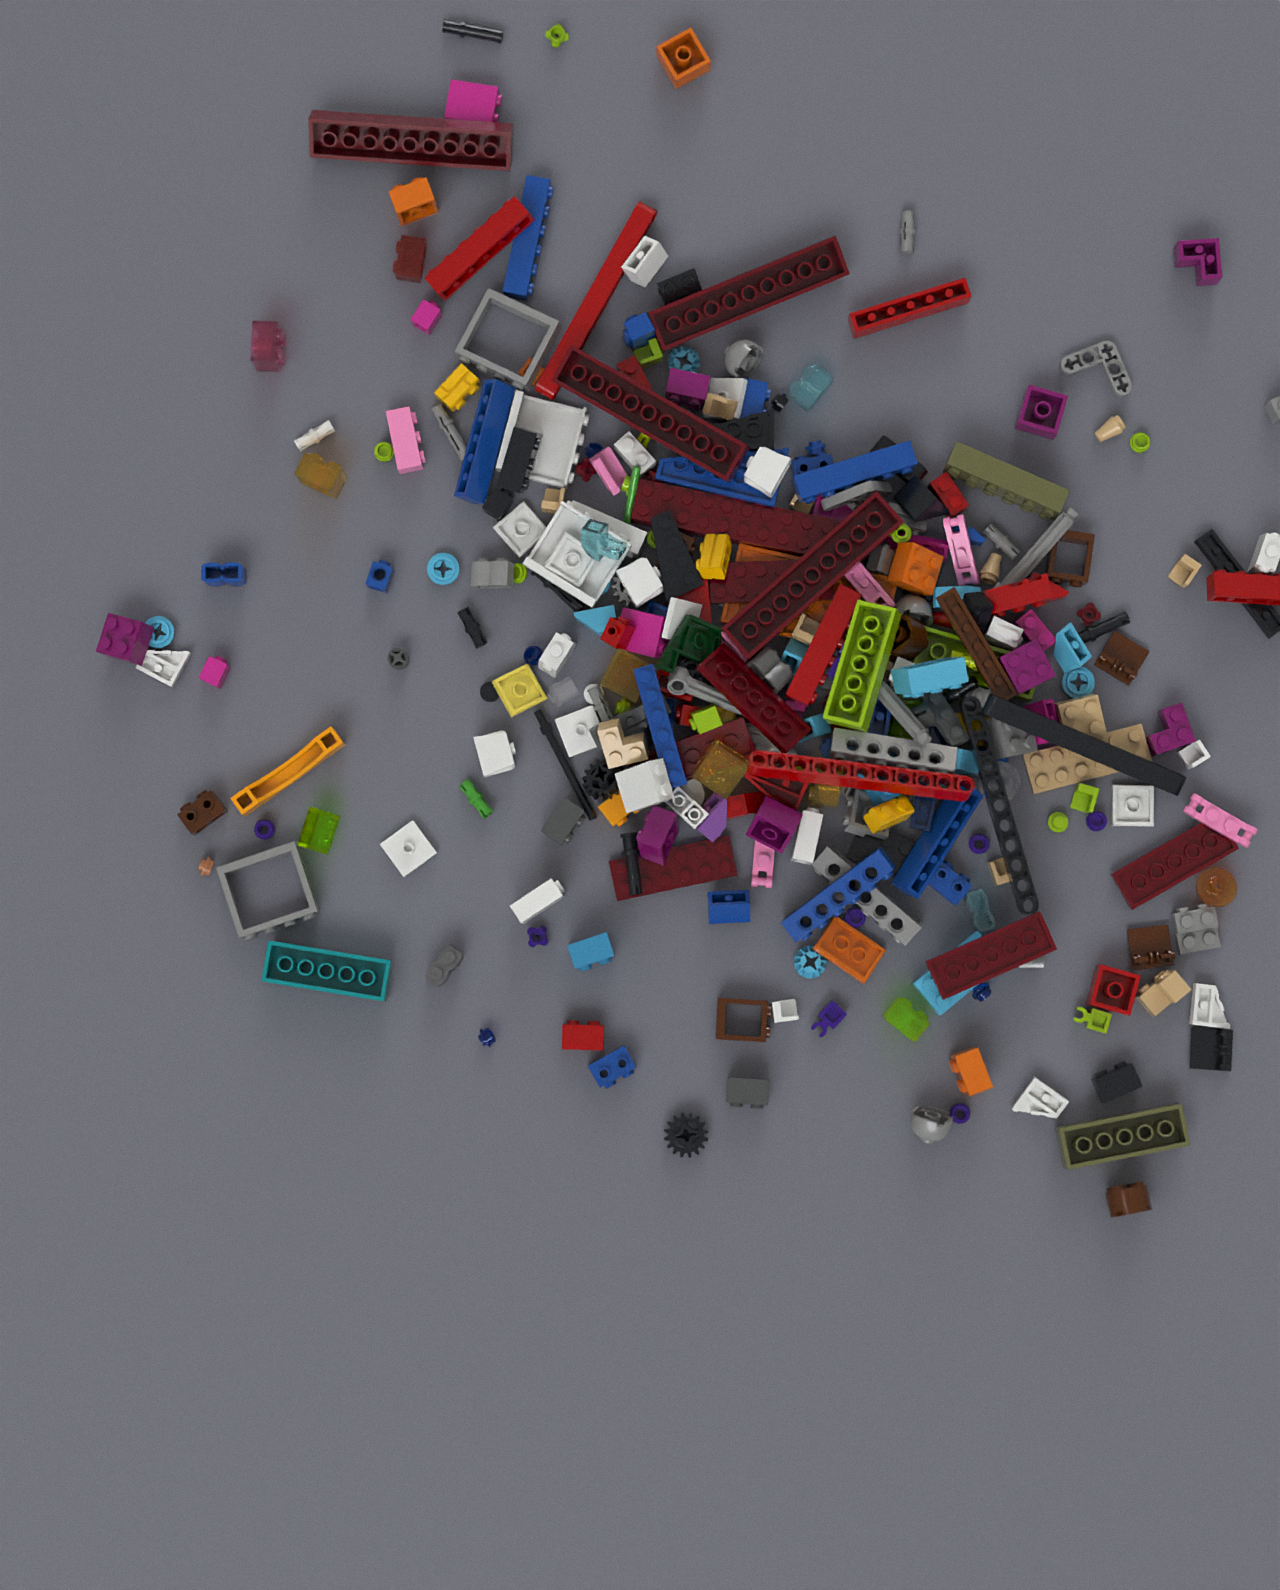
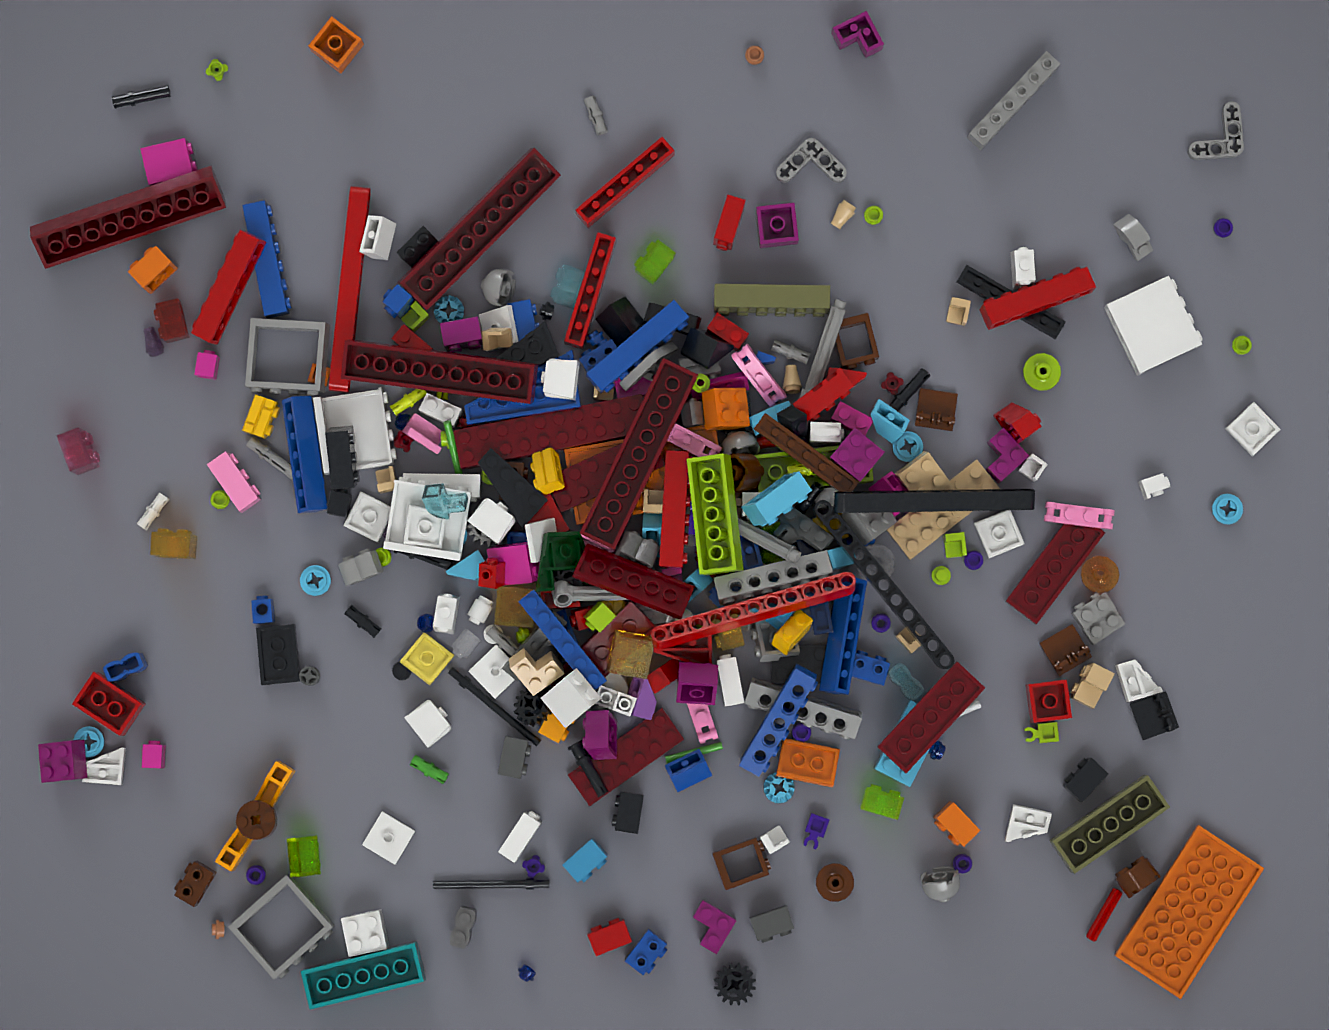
camera: 25 degrees left, 0 degrees up
(192, 603) = (108, 703): none -> red brick
(276, 772) = (245, 820): none -> reddish brown brick
(346, 930) = (365, 933): none -> white brick
(376, 625) = (278, 654): none -> black plate
(383, 273) = (153, 344): none -> clear purple cone
(526, 952) = (529, 884): none -> black bar
(591, 665) = (480, 610): none -> white brick
(607, 432) = (408, 401): none -> neon yellow pin
(653, 922) = (628, 812): none -> black brick
(694, 1071) = (718, 923): none -> magenta brick
(752, 893) = (704, 749): none -> bright green bar
(815, 1076) = (827, 875): none -> reddish brown piece
(830, 399) = (590, 291): none -> red brick
(846, 440) = (620, 320): none -> black slope
(905, 398) = (654, 262): none -> clear neon green brick
(995, 389) = (729, 222): none -> red brick
(1078, 1223) = (1104, 914): none -> red axle
(1088, 238) = (754, 55): none -> nougat plate
(1164, 1256) = (1189, 911): none -> orange plate
(1199, 703) = (1018, 421): none -> red wedge
(1232, 664) = (1040, 381): none -> lime piece

